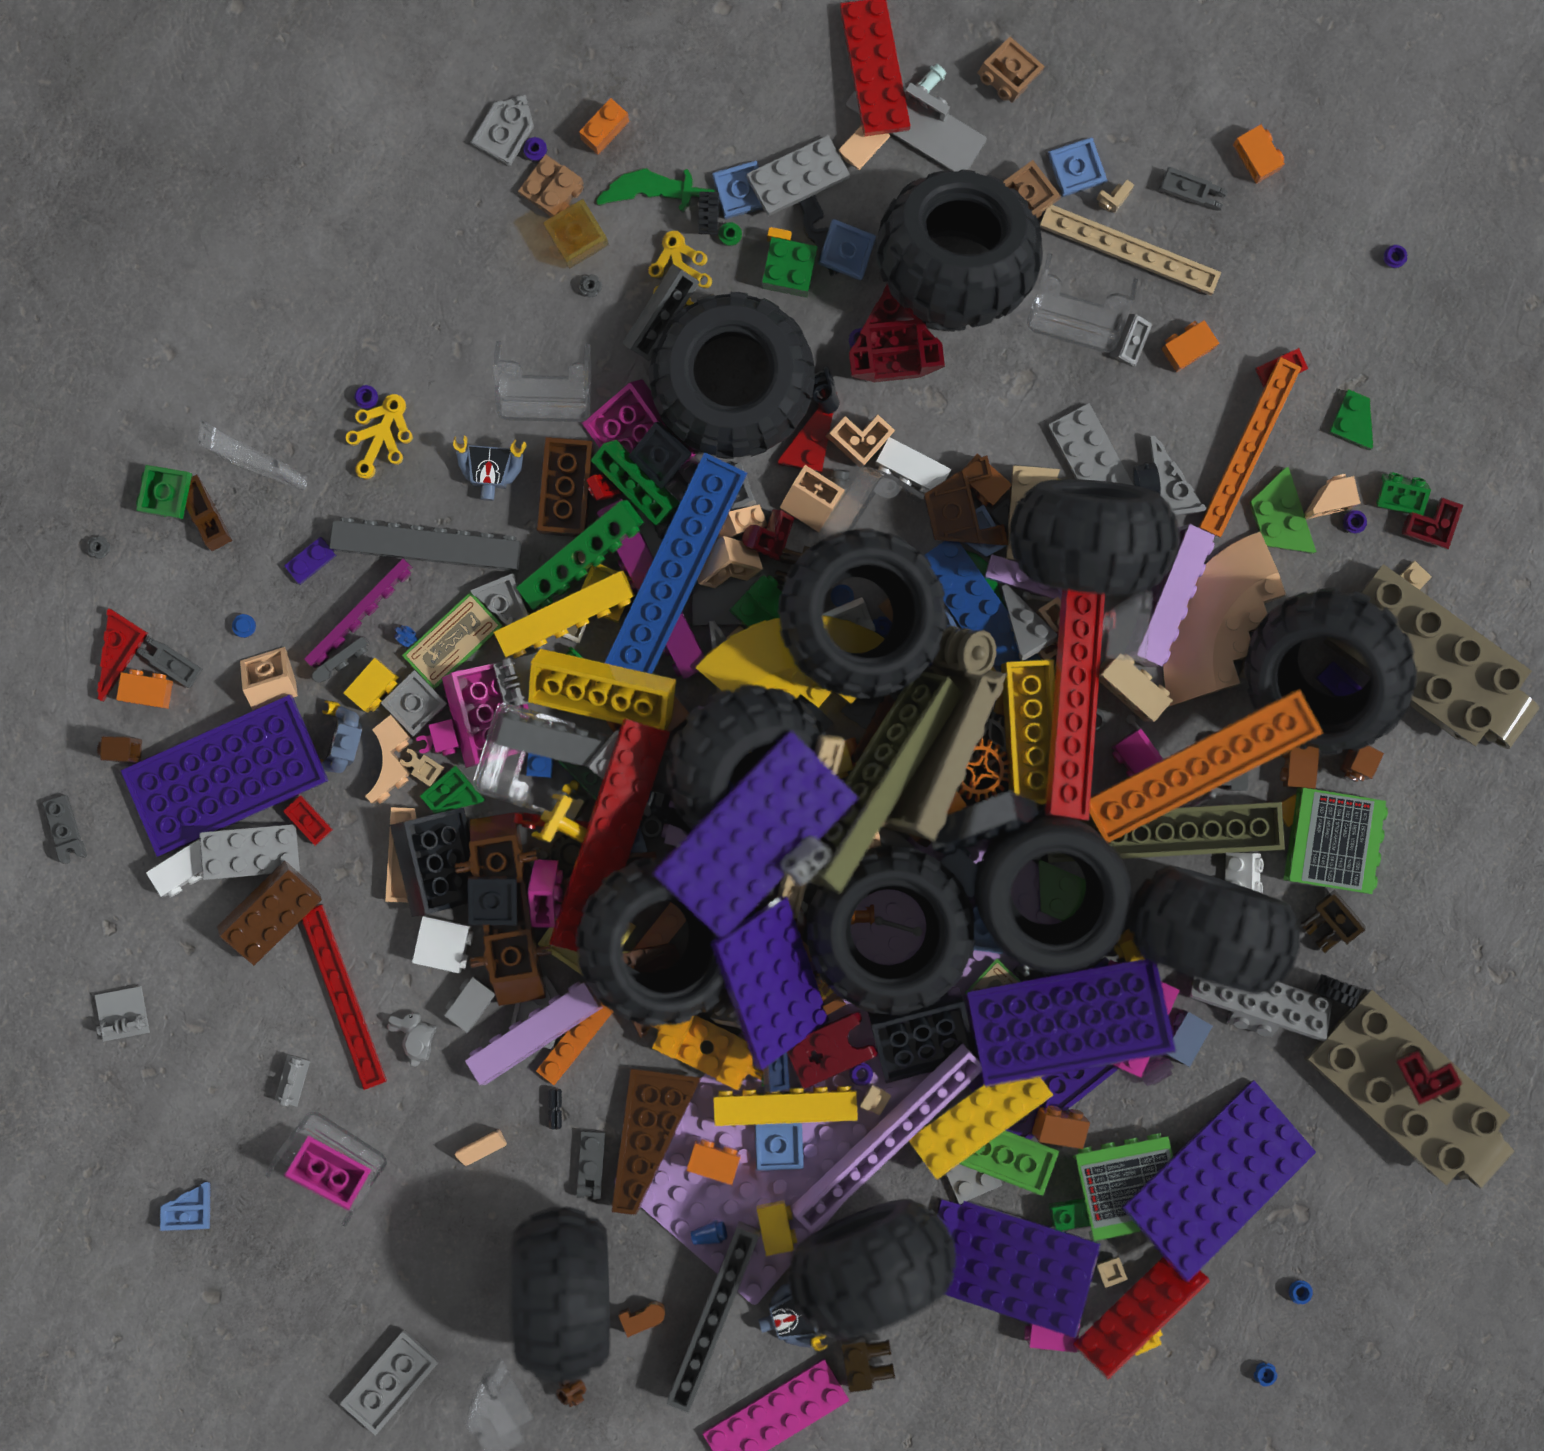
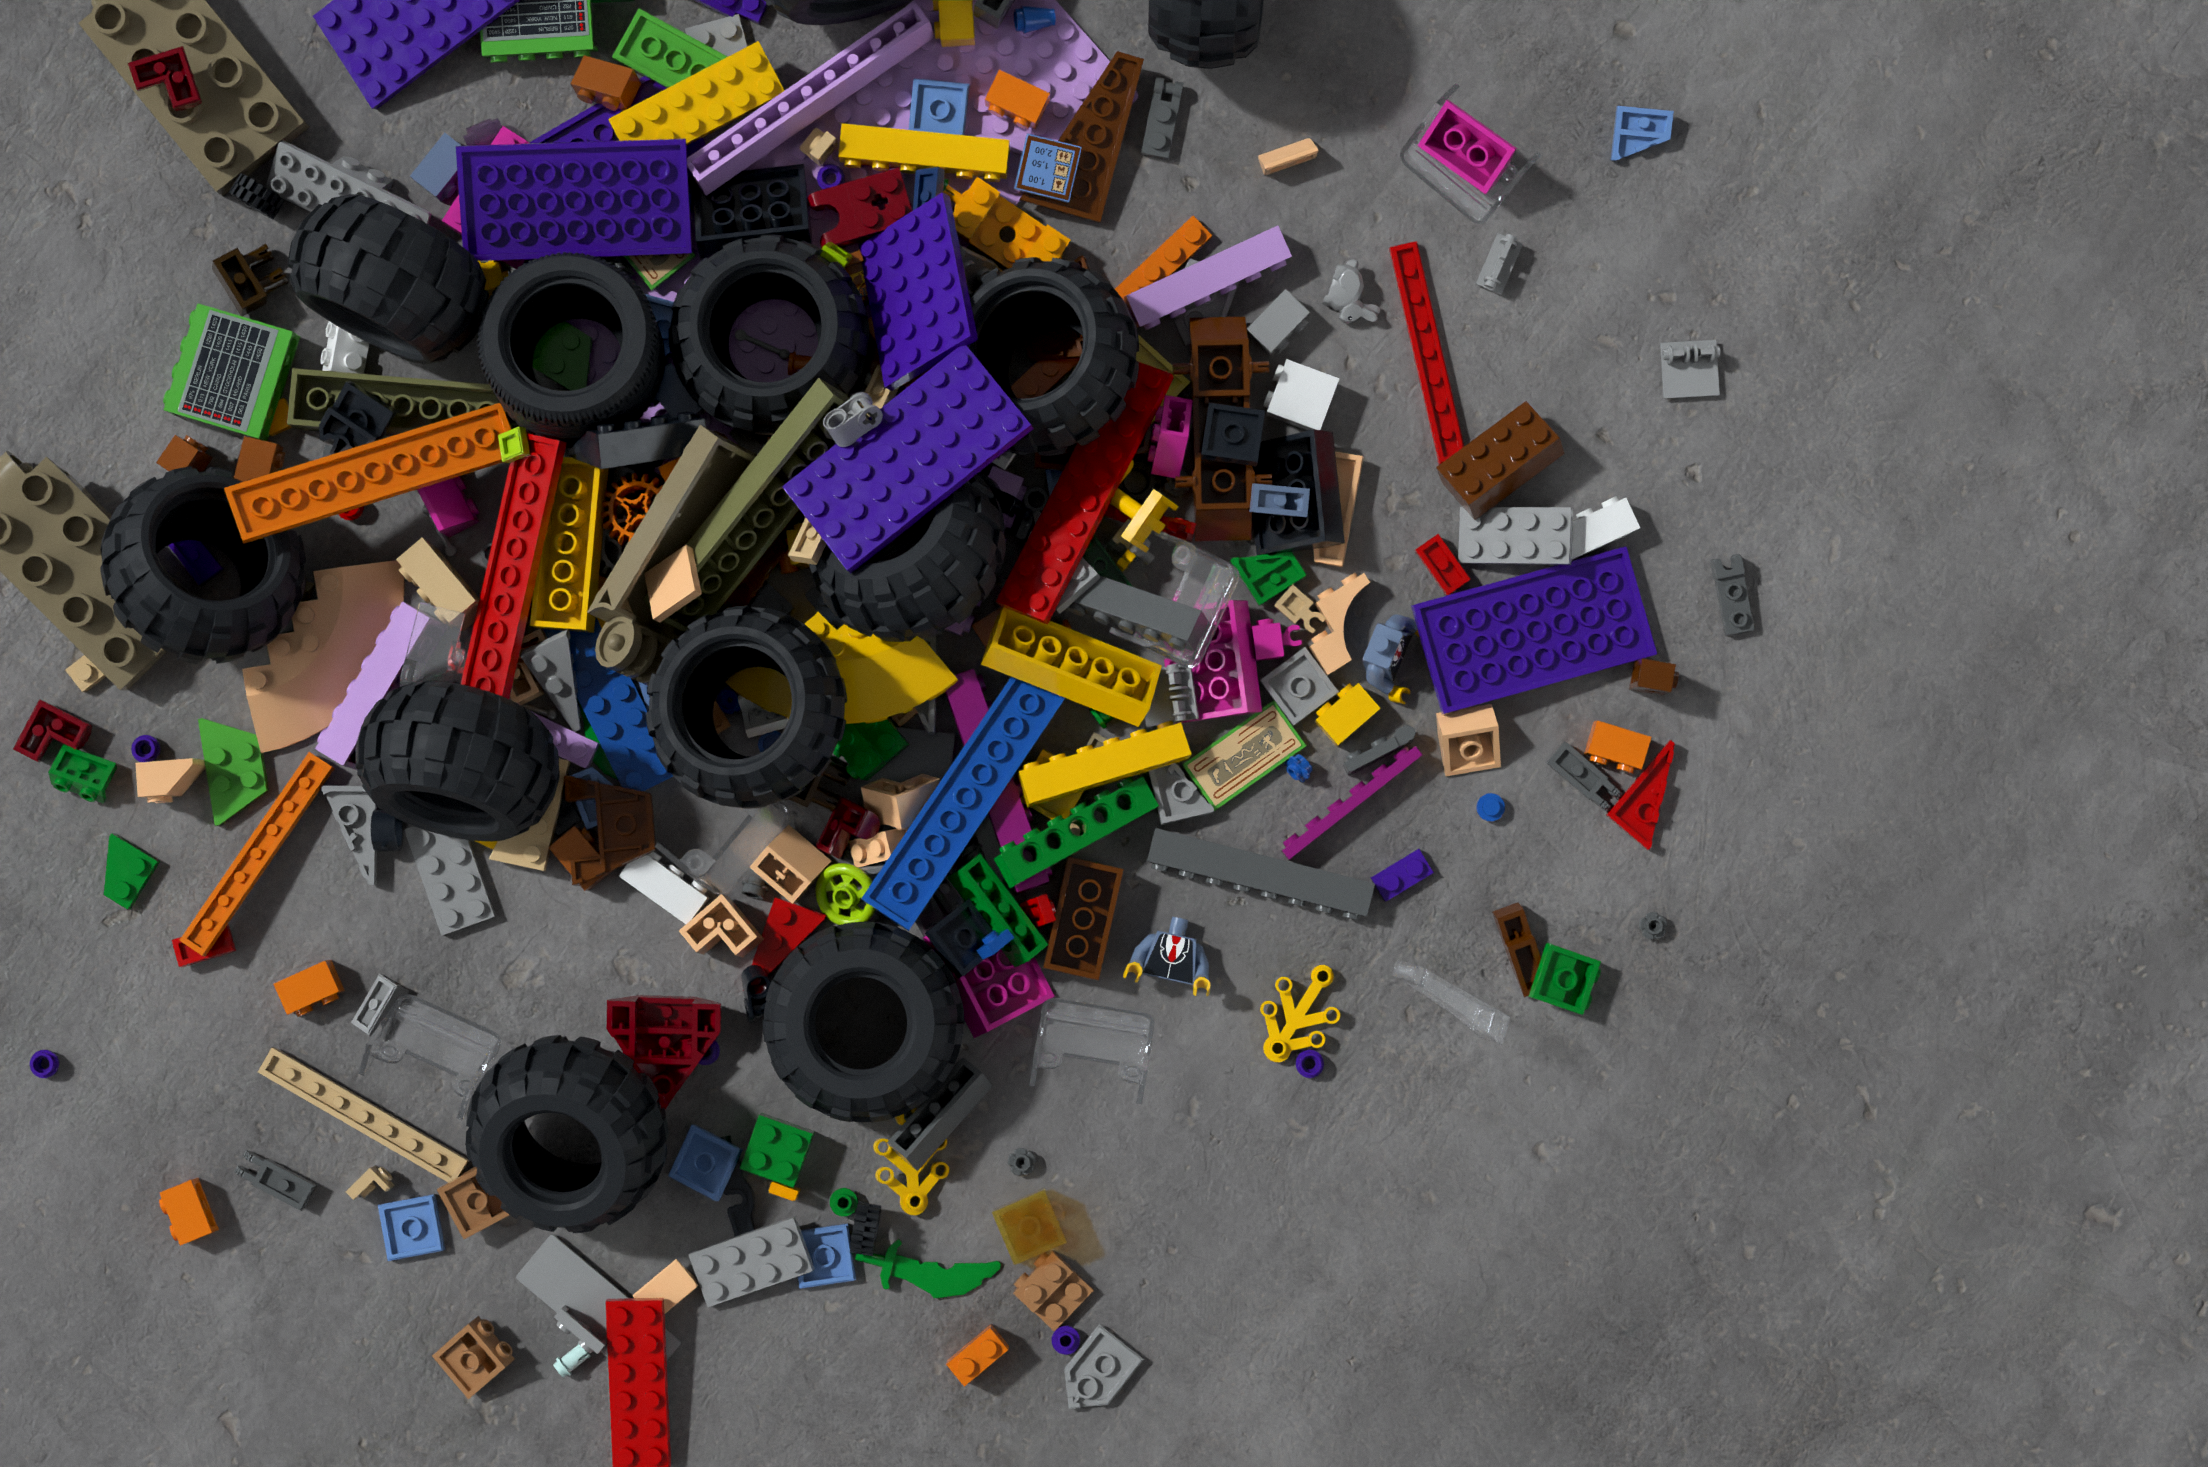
camera: 170 degrees left, 0 degrees up
(446, 851) = (1279, 500): none -> sand blue slope
(539, 766) = (1160, 586): blue brick -> none
(554, 1104) = (1196, 183): black piece -> none
(633, 453) = (994, 942): none -> blue plate
(679, 1107) = (1047, 168): none -> tile
(767, 475) = (841, 901): none -> lime plate
(845, 1006) = (836, 254): none -> lime tile
(938, 706) = (672, 583): none -> light nougat tile
(1089, 807) = (513, 444): none -> lime tile
(1224, 811) = (355, 419): none -> black plate

